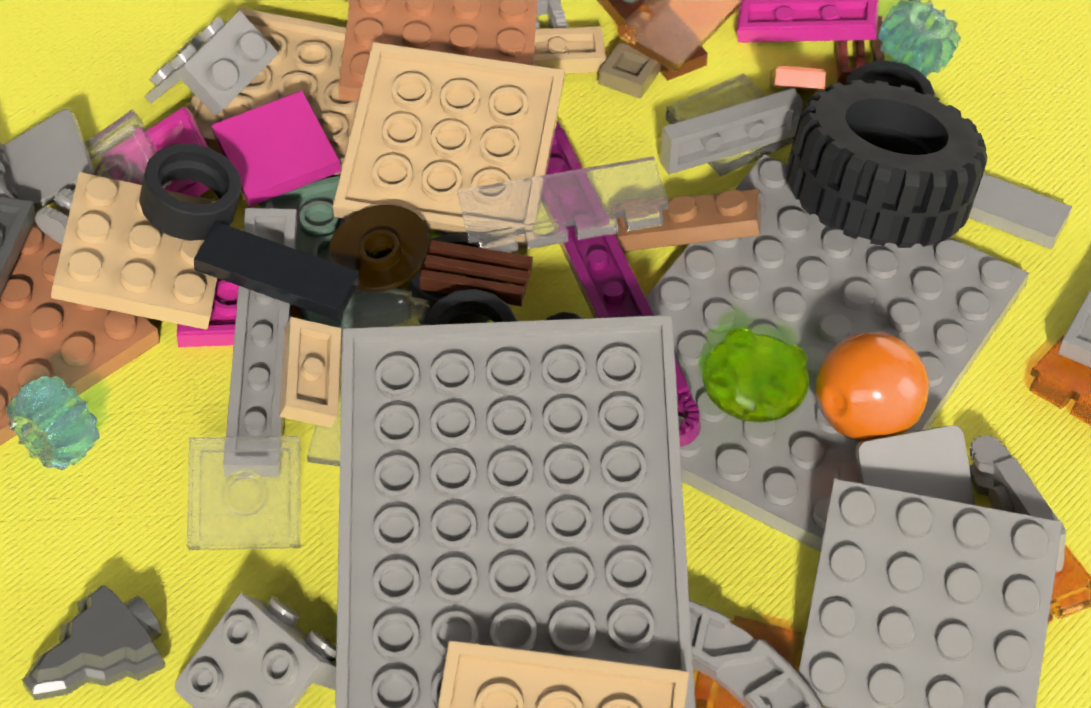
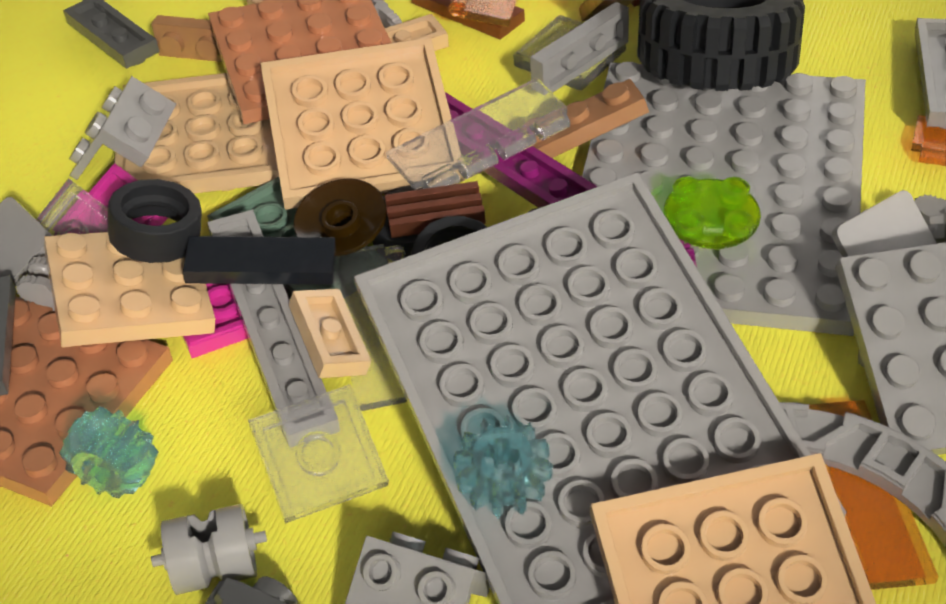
camera: 15 degrees left, 5 degrees down
(95, 550) = (208, 549): none -> light grey wheel
(276, 148) = (214, 169): dark pink tile -> none
(396, 592) = (503, 487): none -> clear light blue gear
(628, 71) = (469, 38): dark tan plate -> none
(872, 386) = (818, 183): orange piece -> none
(1019, 211) = (834, 44): light grey tile -> none

